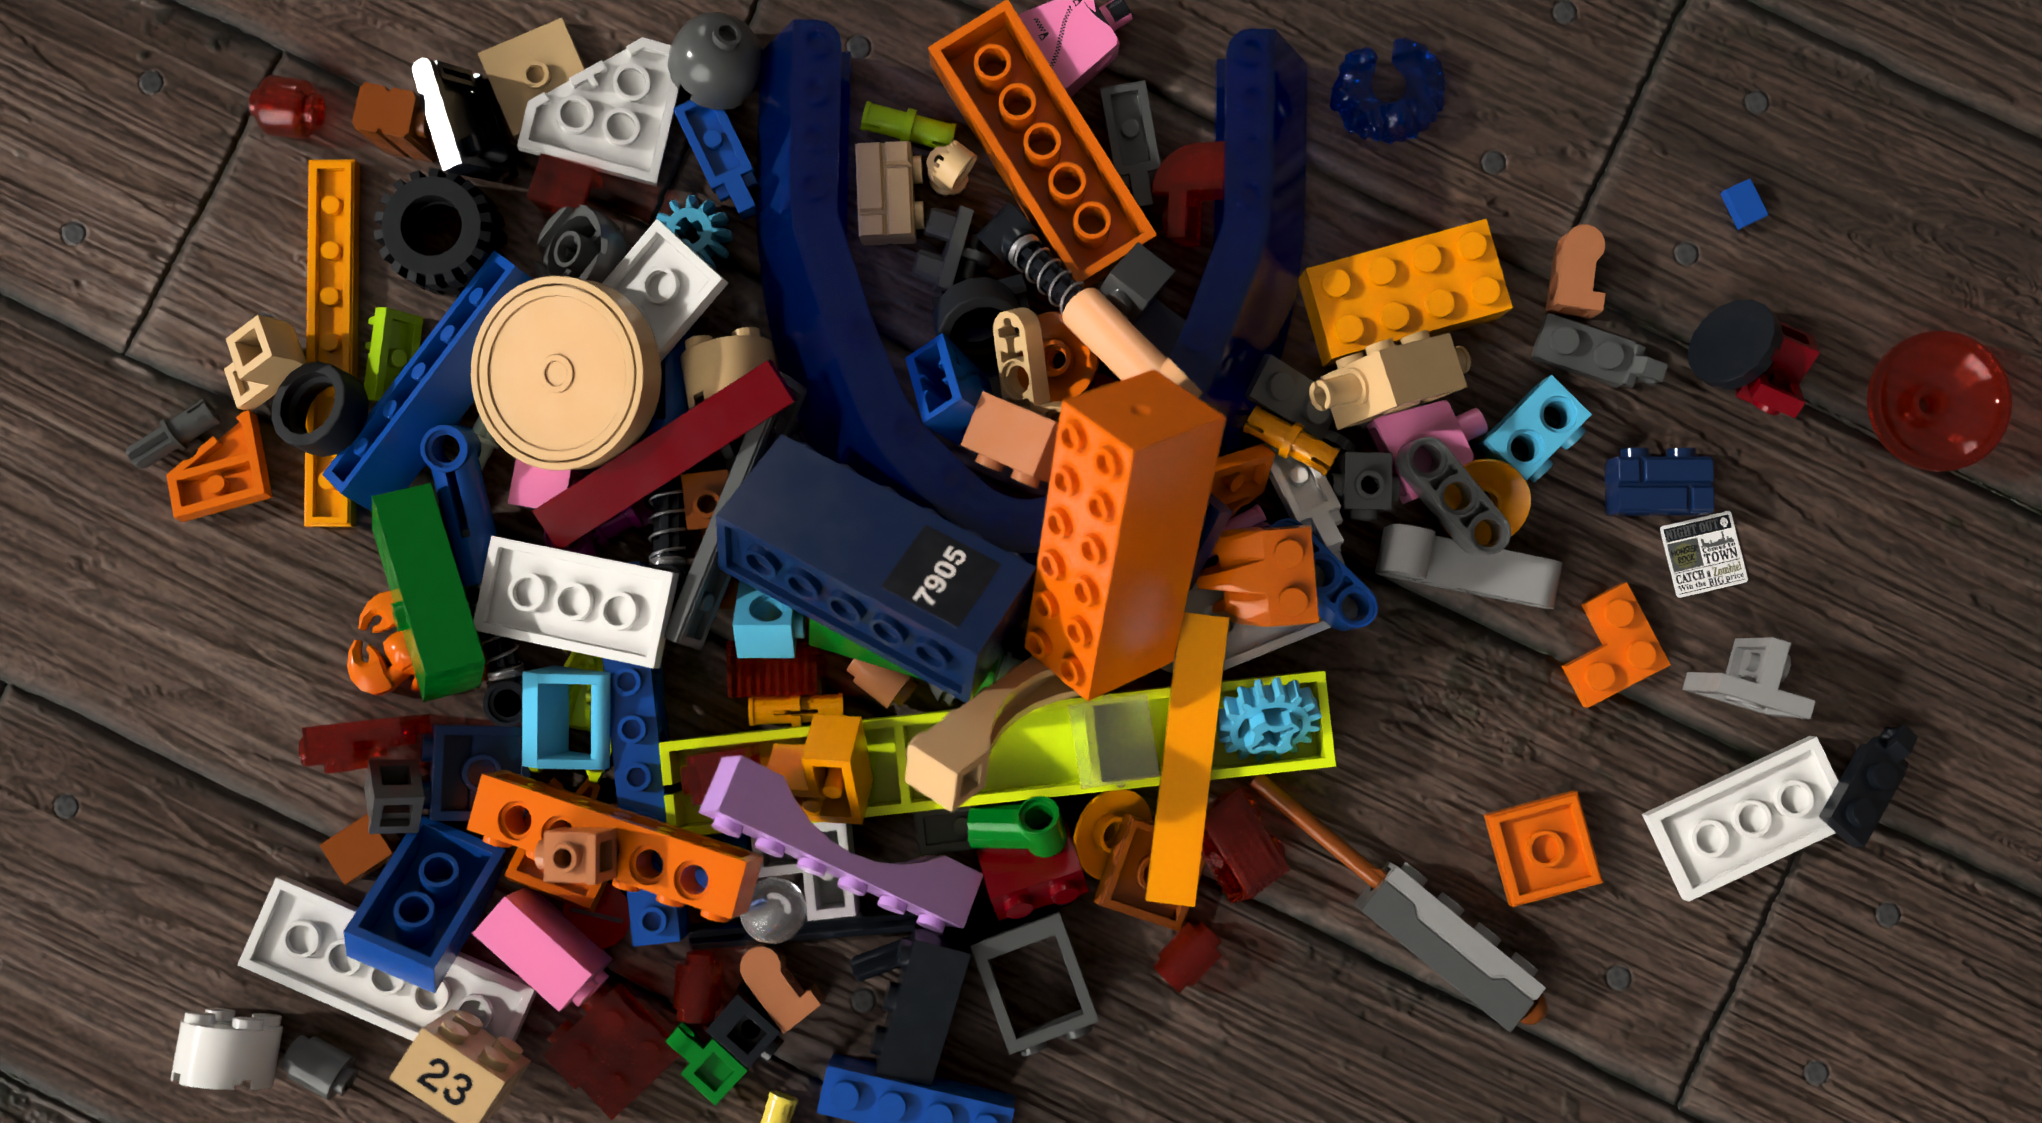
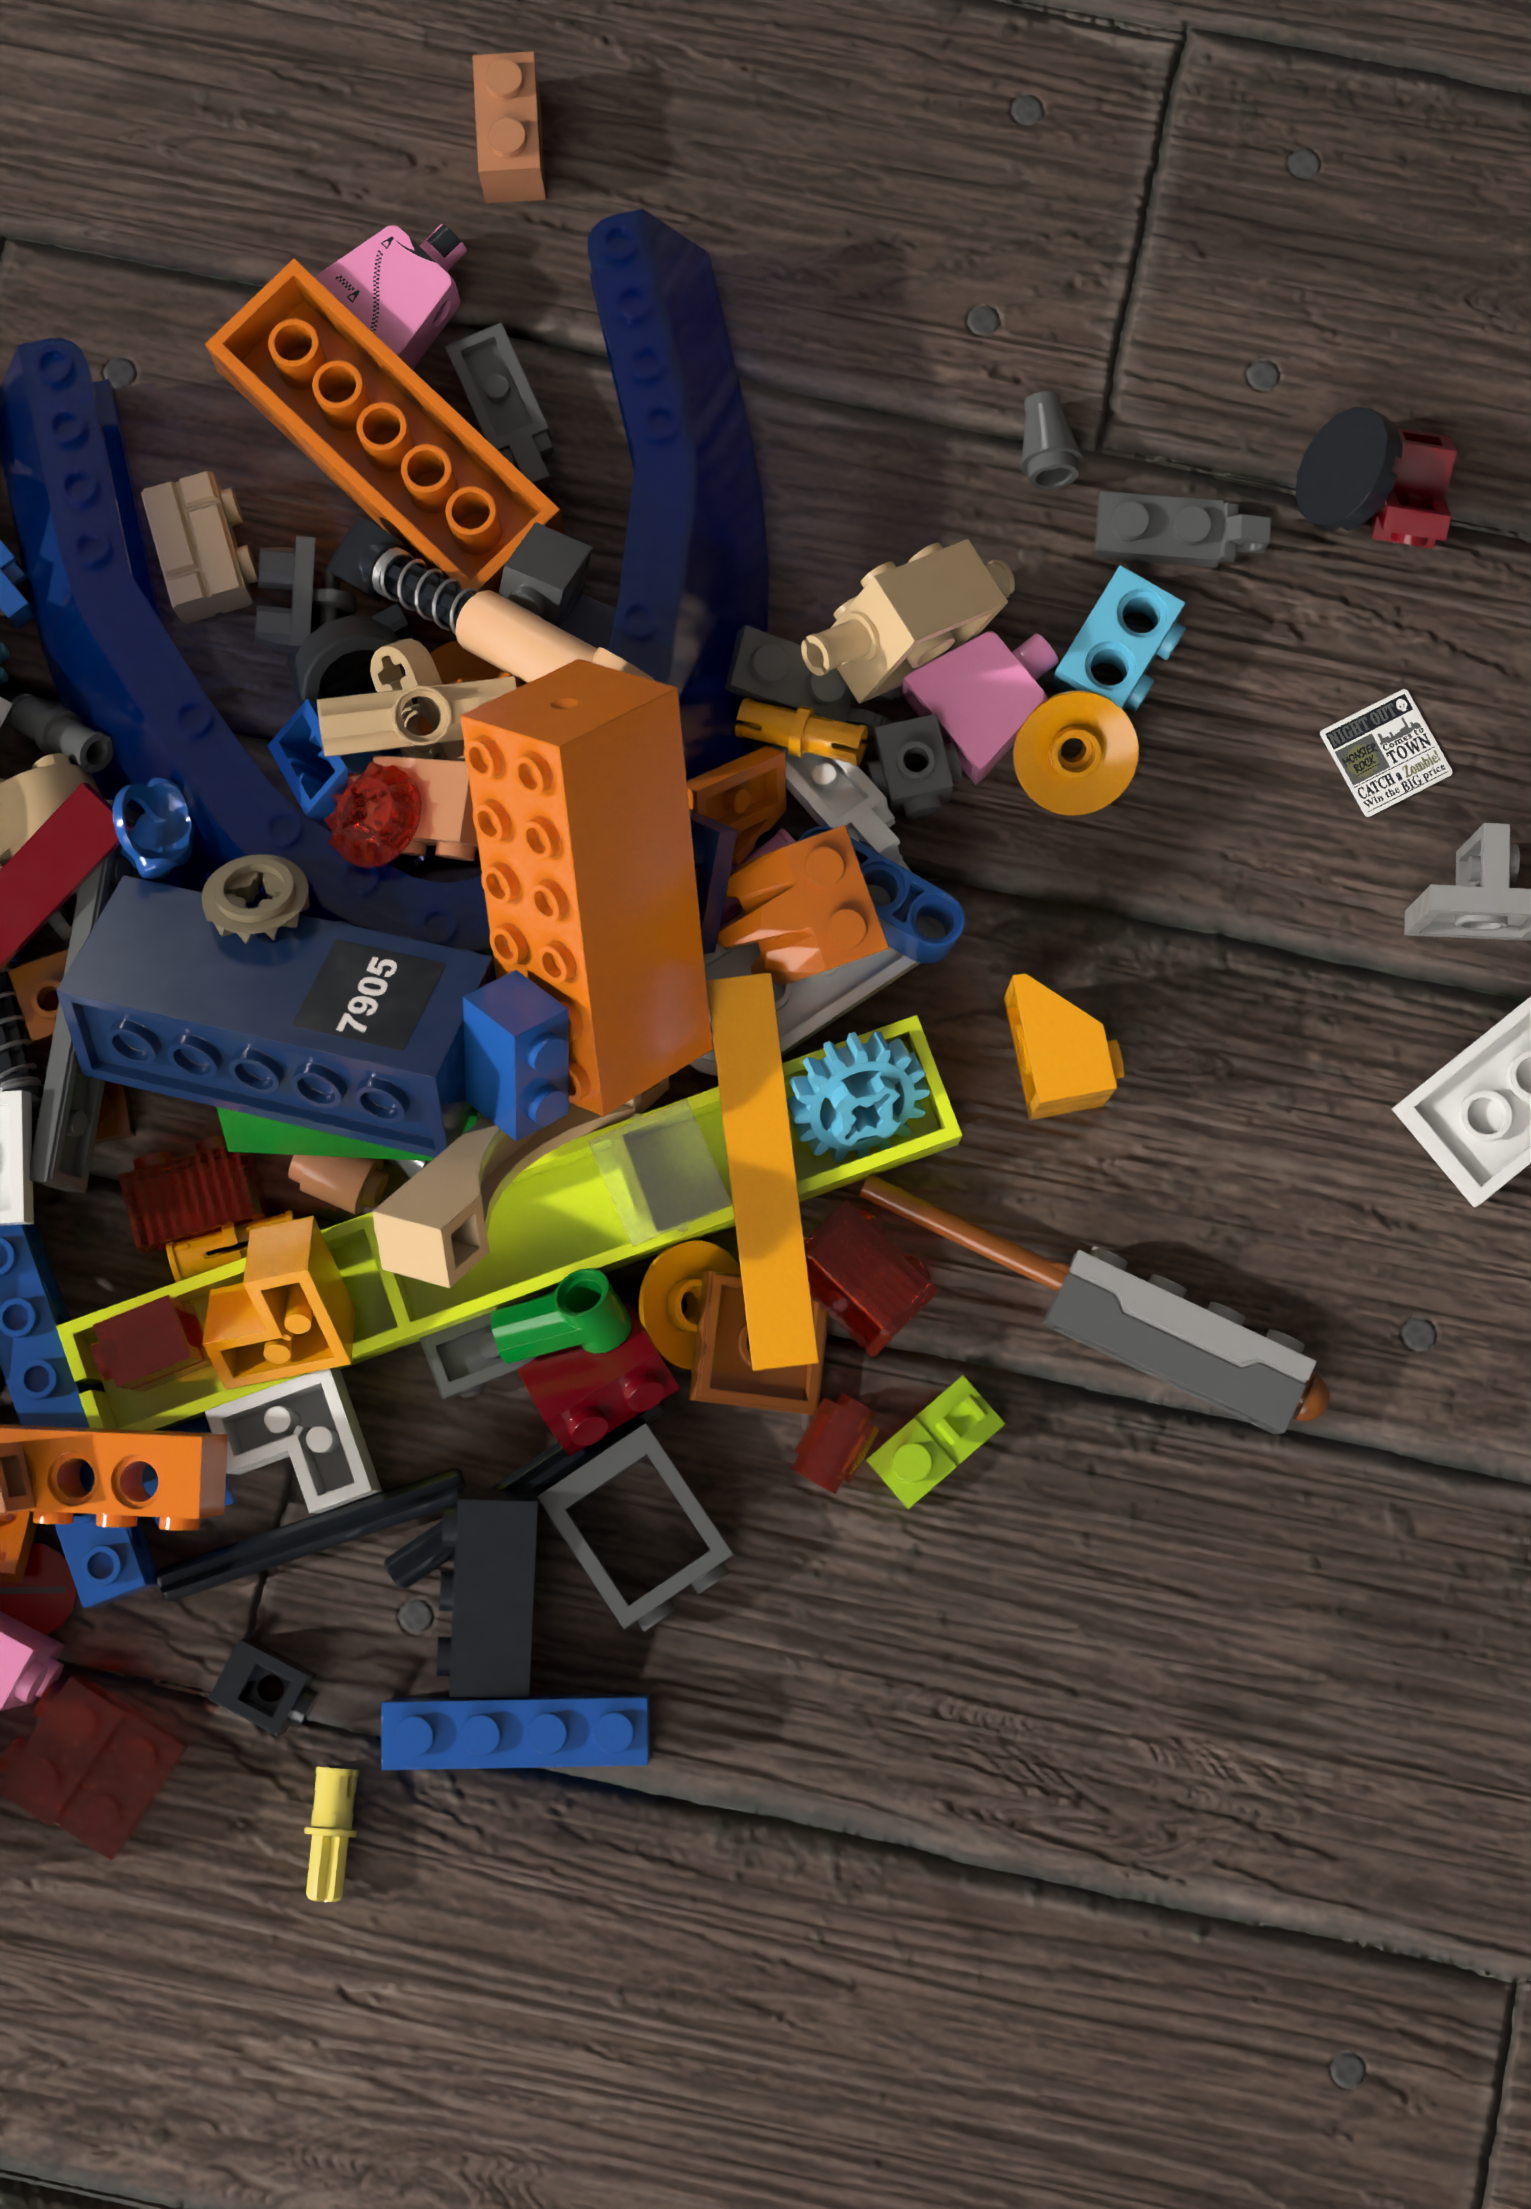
camera: 10 degrees left, 5 degrees down
(697, 987) = (186, 1648): clear red brick -> none
(710, 1066) = (229, 1753): green plate -> none
(757, 308) = (60, 732): none -> dark grey pin
(761, 805) = (204, 1360): lavender arch -> none
(765, 625) = (163, 1135): medium azure brick -> none
(775, 911) = (262, 1514): clear piece -> none
(776, 987) = (275, 1609): nougat leg -> none
(816, 405) = (161, 834): none -> blue piece
(862, 464) = (239, 883): none -> dark tan gear
(907, 125) = (207, 453): lime pin -> none
(950, 168) = (272, 493): tan connector -> none
(989, 445) = (395, 816): none -> clear red gear
(992, 368) = (375, 719): none -> tan piece
(1037, 645) = (516, 1055): none -> blue brick
(1183, 182) = (582, 438): clear red brick -> none
(1258, 970) = (935, 1442): none -> lime plate
(1396, 120) = (843, 292): clear blue piece -> none
(1403, 289) = (926, 485): light orange brick -> none
(1418, 720) = (1059, 1051): none -> light orange slope
(1437, 561) = (1074, 841): light grey beam -> none
(1474, 504) = (1014, 718): dark grey beam -> none
(1521, 266) = (1049, 446): none -> dark grey cone
(1543, 848) = (1271, 1184): orange plate -> none
(1574, 274) = (1119, 433): nougat leg -> none
(1627, 648) = (1316, 895): orange plate -> none
(1659, 484) = (1299, 673): dark blue brick -> none
(1744, 204) = (1320, 293): blue piece -> none

